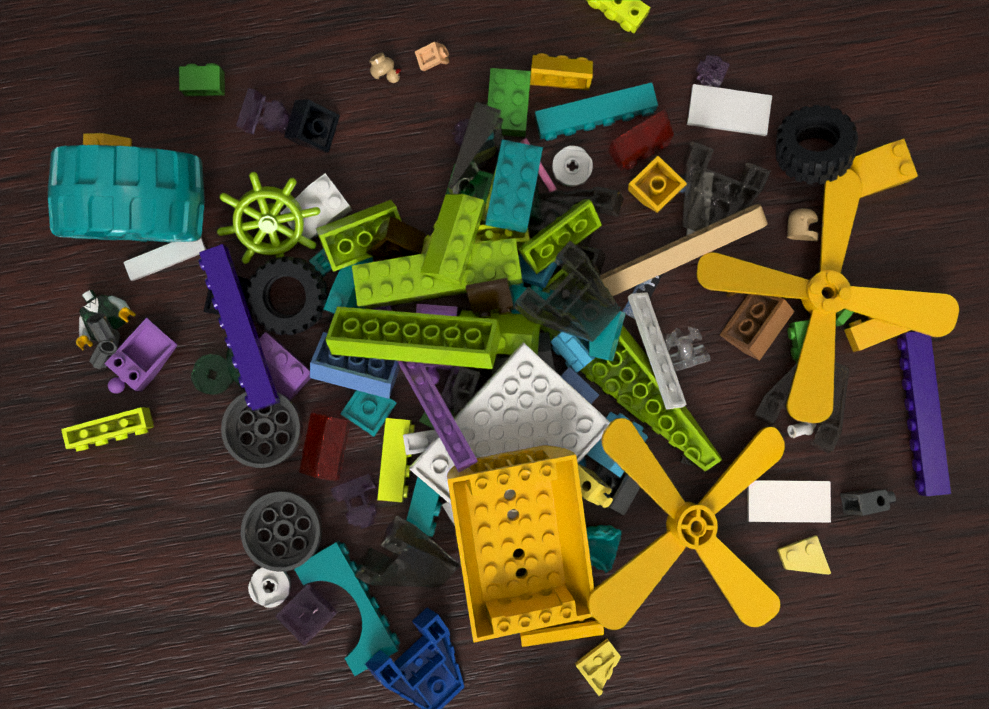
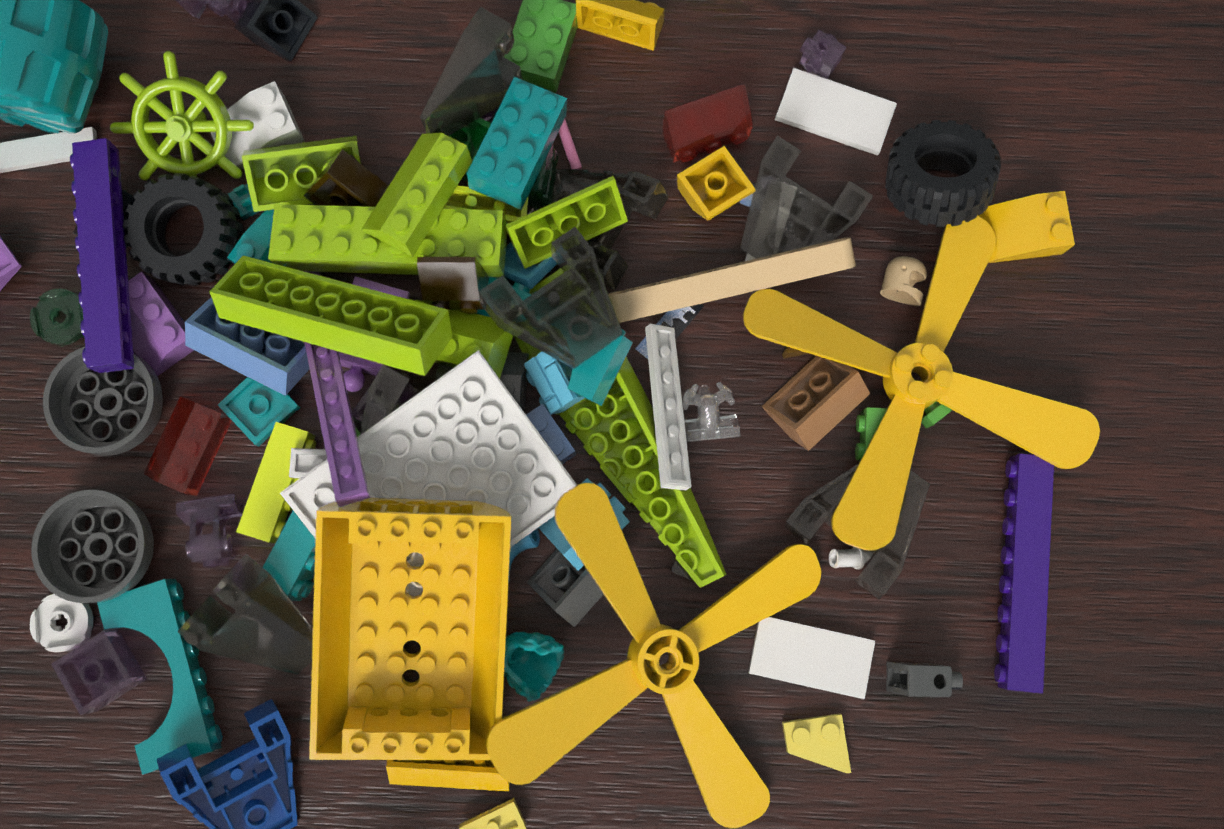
camera: 10 degrees right, 5 degrees down
(564, 158) = (602, 128): white plate -> none
(593, 487) = (540, 580): light yellow torso -> none
(596, 111) = (654, 76): teal brick -> none
(871, 332) = (972, 445): yellow brick -> none

